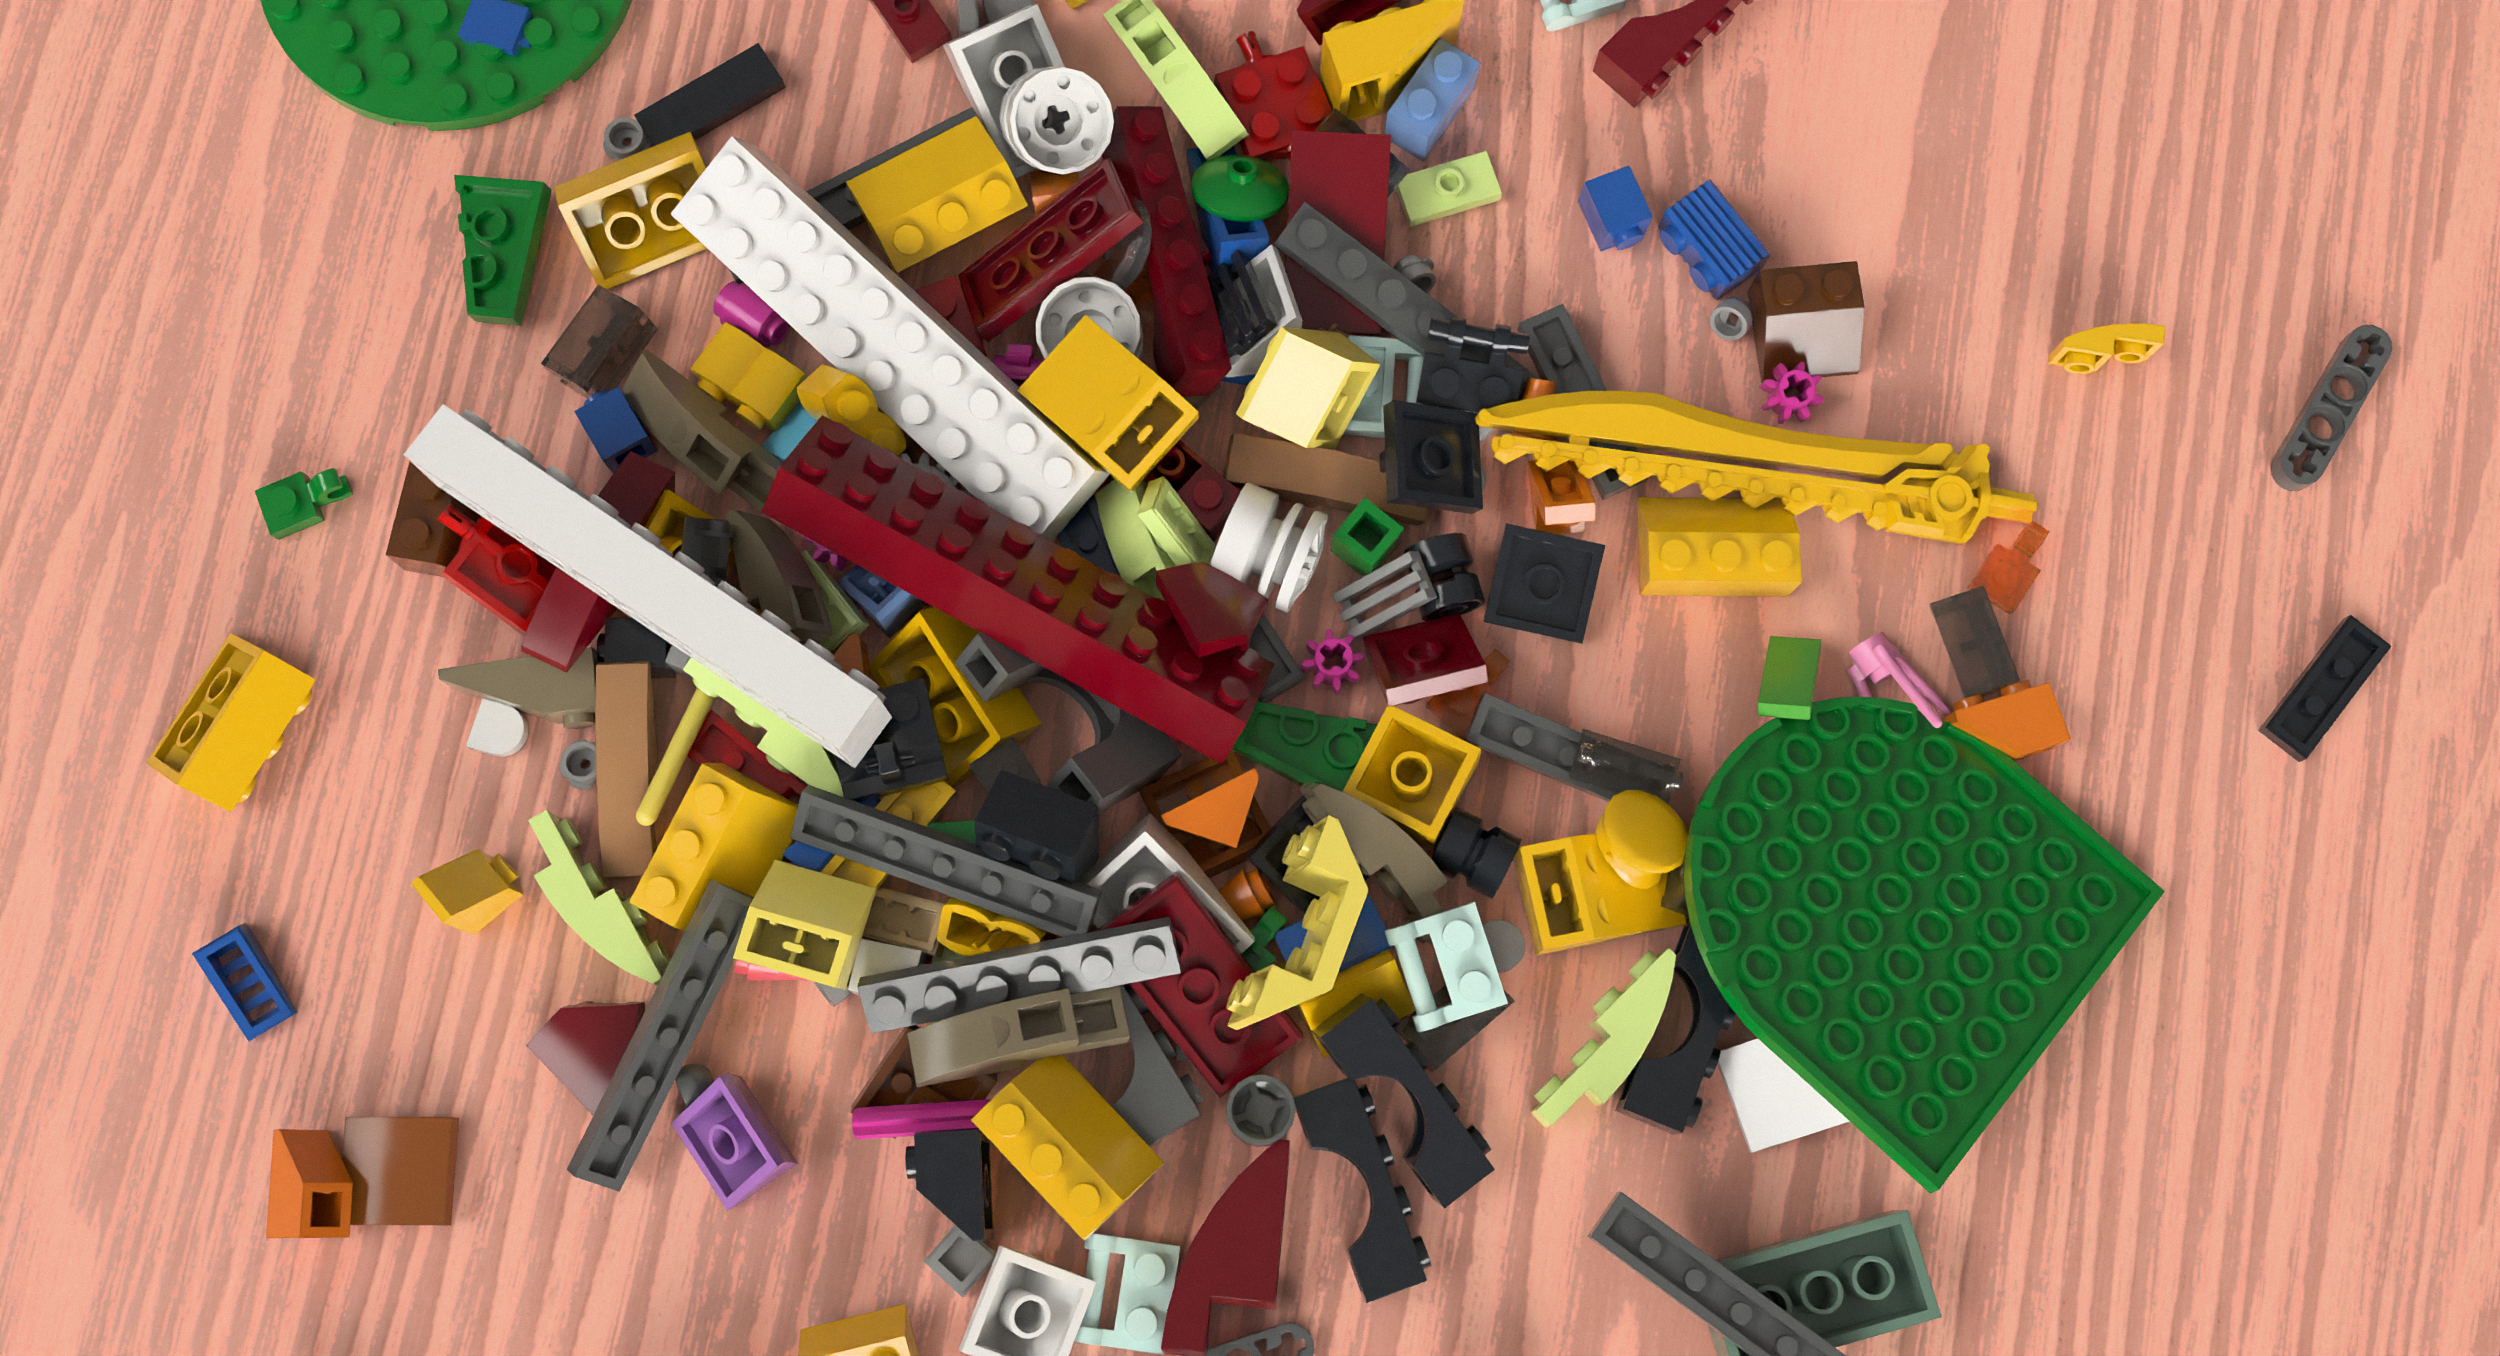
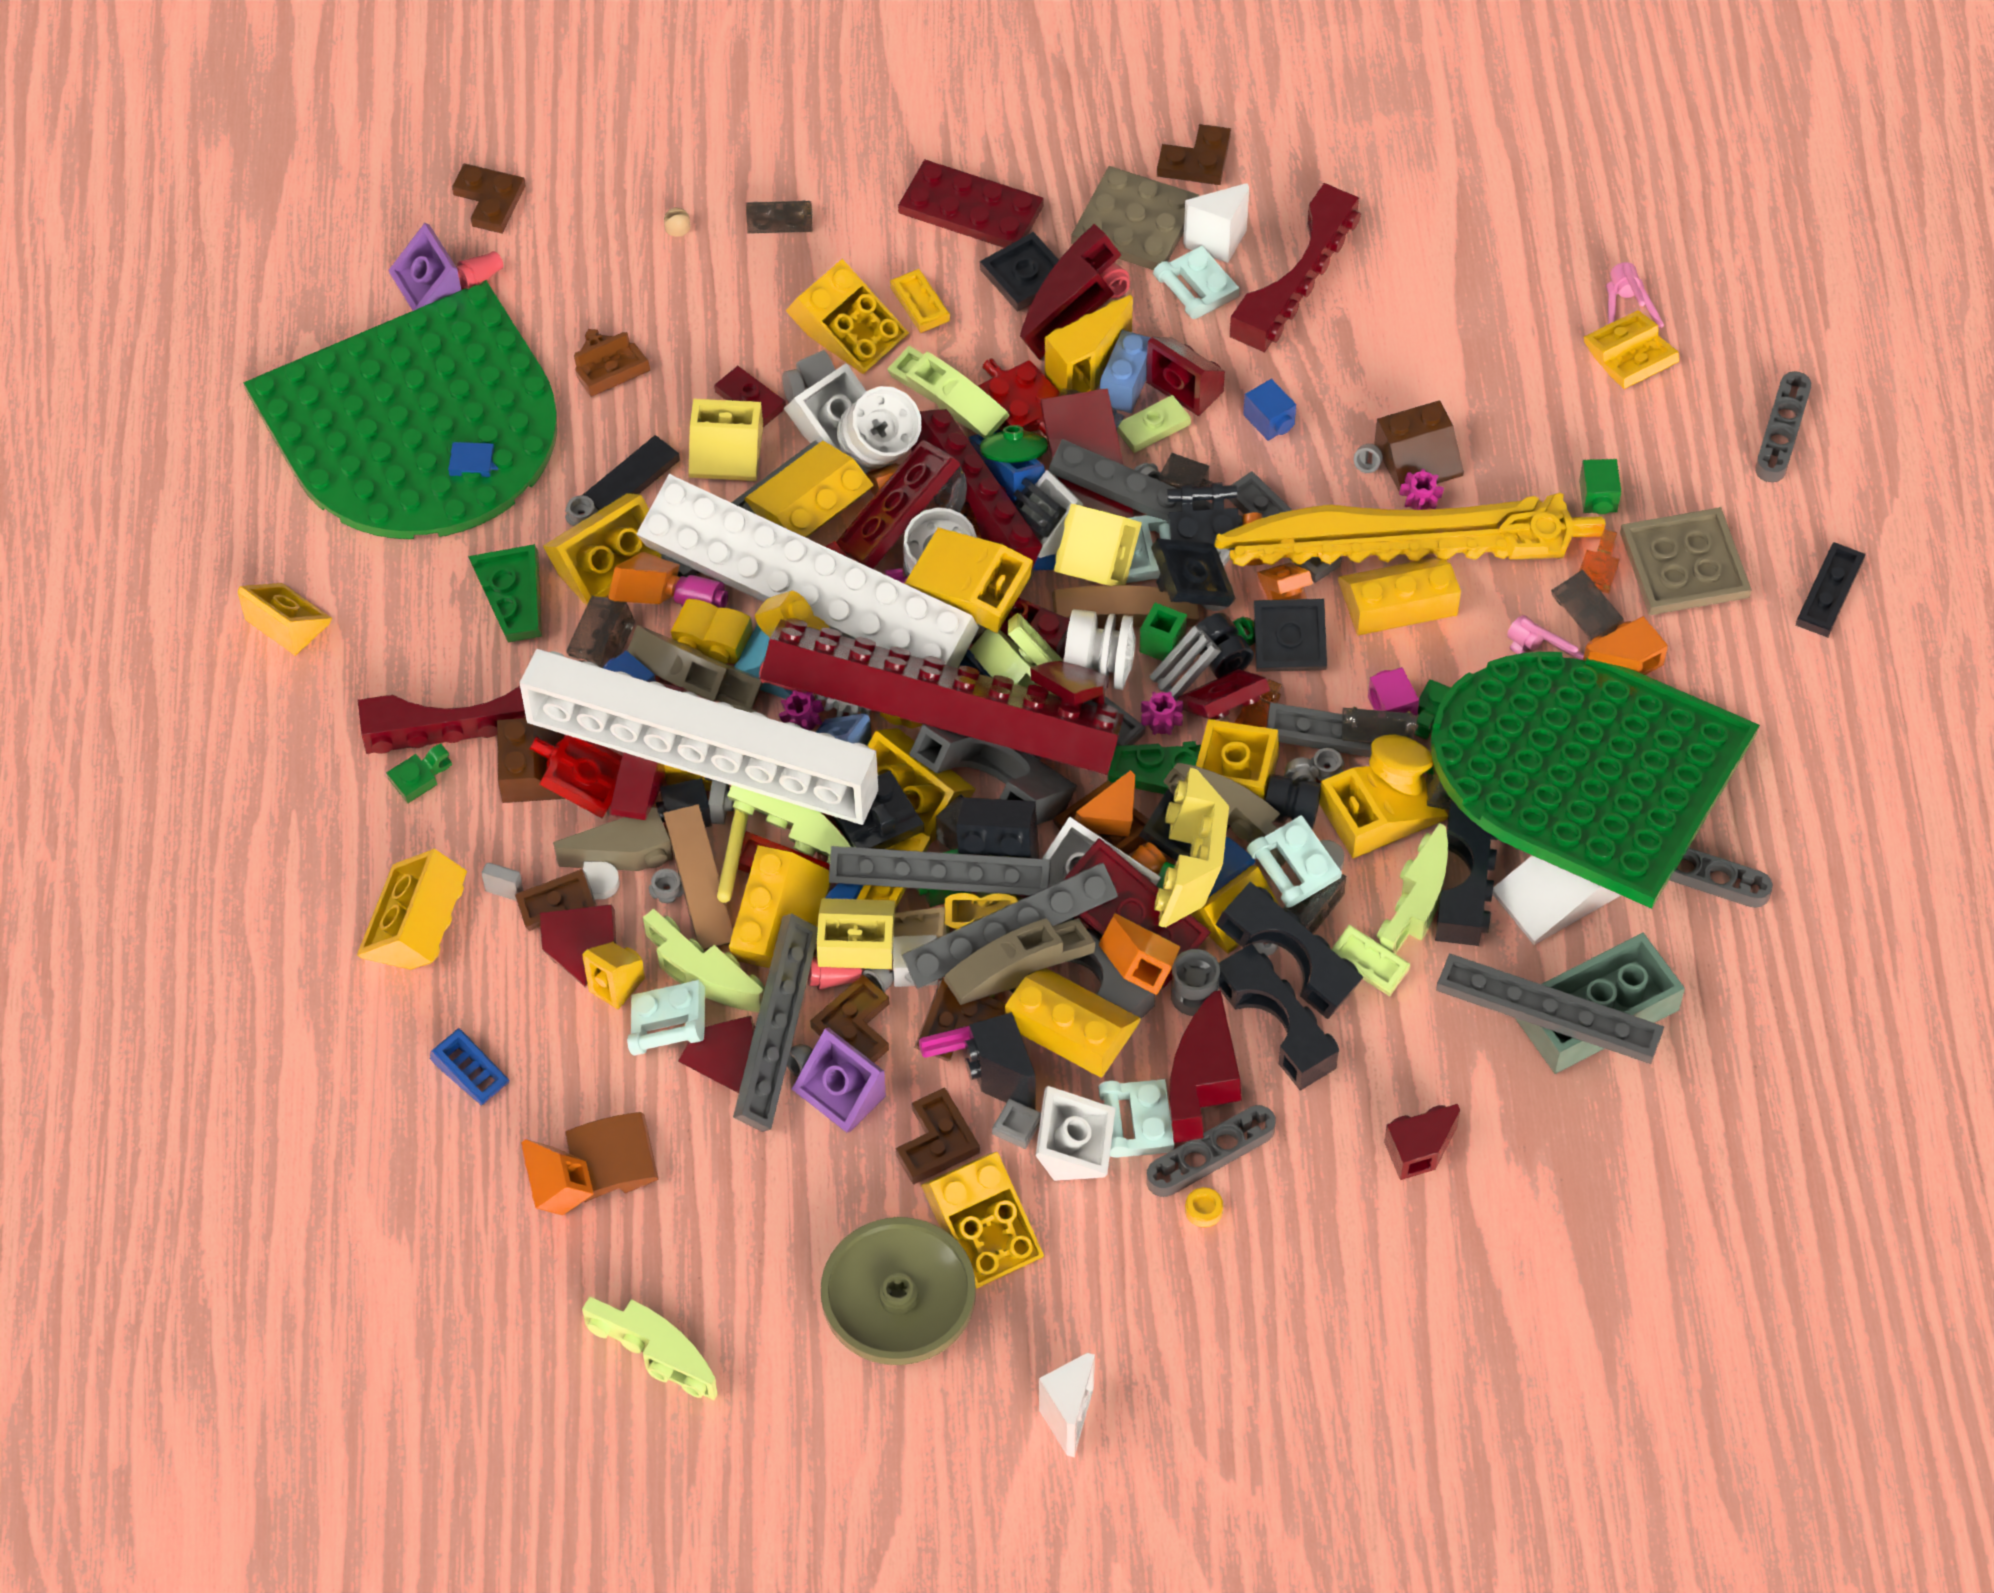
camera: 10 degrees left, 20 degrees down
(182, 204) = (282, 614): none -> yellow slope
(275, 416) = (396, 724): none -> dark red arch
(363, 704) = (501, 881): none -> light grey tile
(437, 821) = (572, 932): none -> dark red slope
(445, 761) = (559, 894): none -> reddish brown plate
(531, 962) = (664, 1009): none -> light aqua plate
(671, 279) = (644, 580): none -> orange slope
(765, 1046) = (850, 1014): none -> reddish brown plate
(847, 78) = (725, 439): none -> light yellow slope
(859, 1259) = (945, 1142): none -> reddish brown plate
(1189, 1064) = (1138, 953): none -> orange slope
(1467, 292) = (1183, 470): none -> clear smoke brick
(1493, 549) = (1248, 623): none -> green hinge
(1499, 807) = (1301, 770): none -> light grey plate
(1510, 123) = (1183, 373): none -> dark red slope
(1513, 1130) = (1373, 961): none -> yellowish green plate
(1553, 799) = (1328, 757): none -> light grey plate
(1661, 715) = (1392, 692): none -> dark pink brick
(1712, 240) = (1340, 414): blue brick -> none
(1714, 739) = (1428, 706): none -> green plate
(1789, 677) = (1471, 652): bright green tile -> none
(2014, 1115) = (1707, 864): none -> dark grey beam
(2045, 446) = (1600, 486): none -> green brick
(2093, 347) = (1632, 414): yellow slope -> none
(2132, 595) = (1685, 561): none -> dark tan plate
(2150, 229) = (1631, 349): none -> yellow slope
(2173, 123) = (1627, 284): none -> bright pink plant

